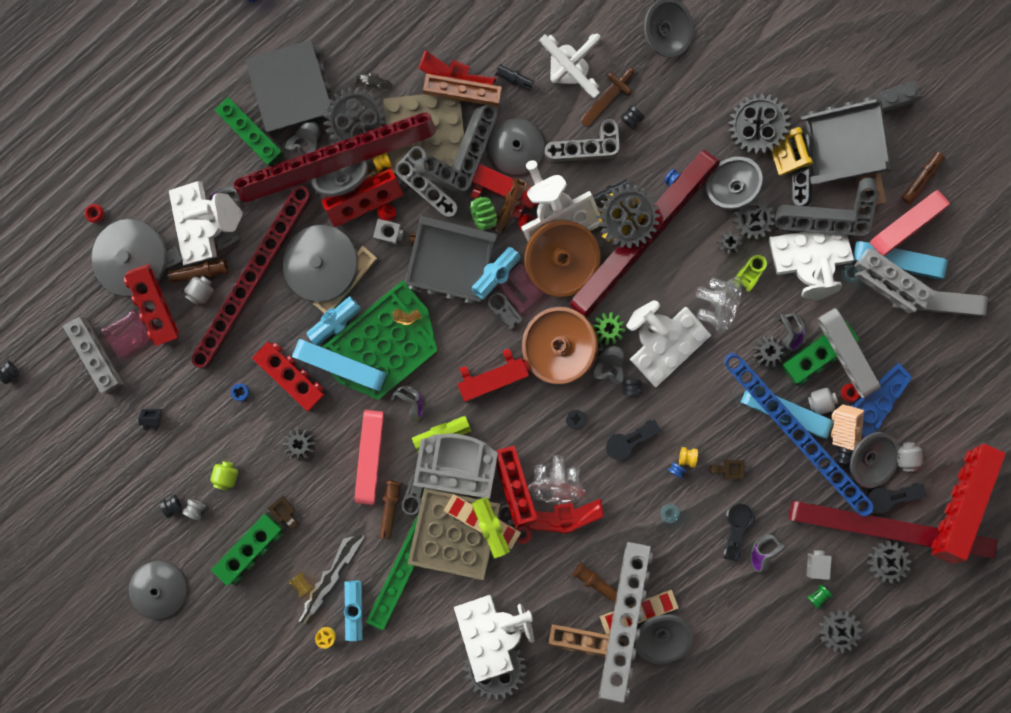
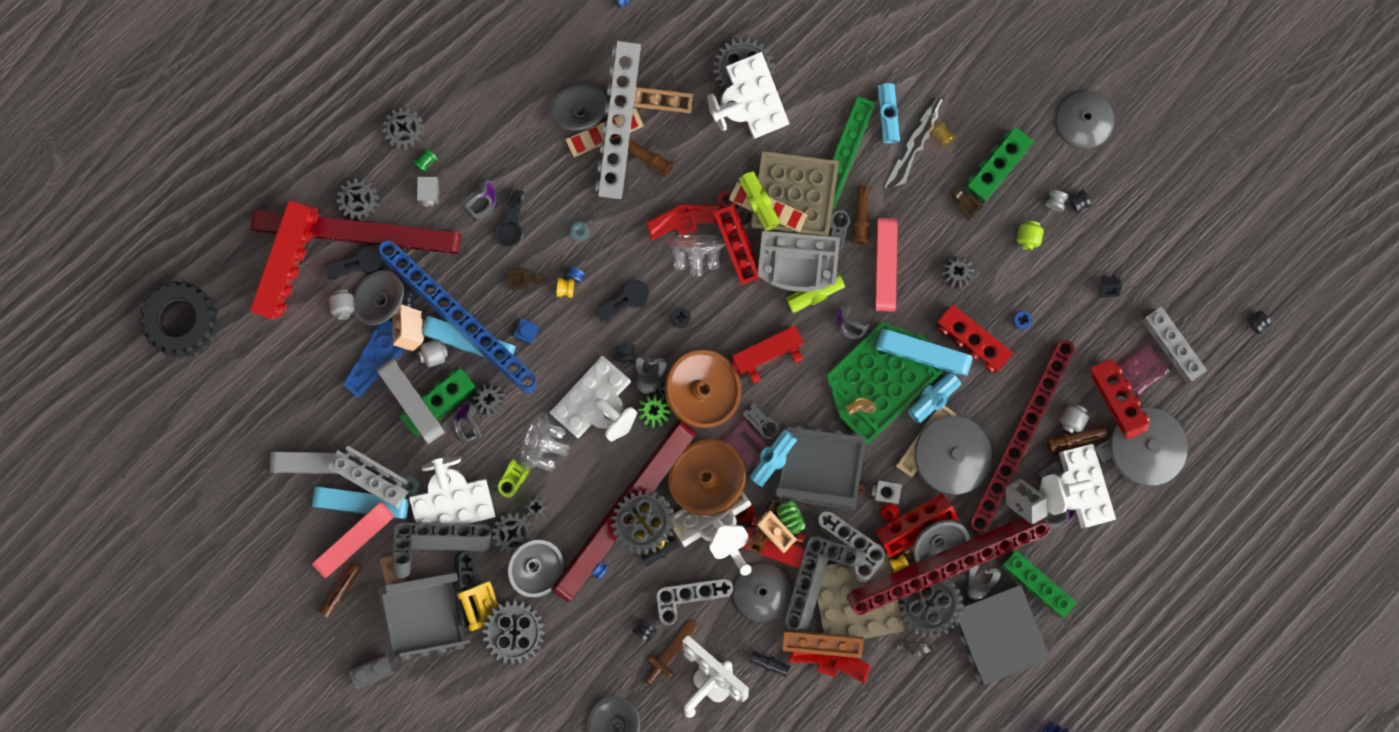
camera: 175 degrees left, 5 degrees down
(89, 210) = (1196, 490): red plate -> none
(253, 211) = (1026, 501): none -> light grey brick
(322, 639) = (916, 82): yellow wheel -> none
(499, 197) = (776, 531): none -> light nougat slope
(728, 417) = (526, 331): none -> blue plate
(844, 390) = (404, 358): red plate -> none

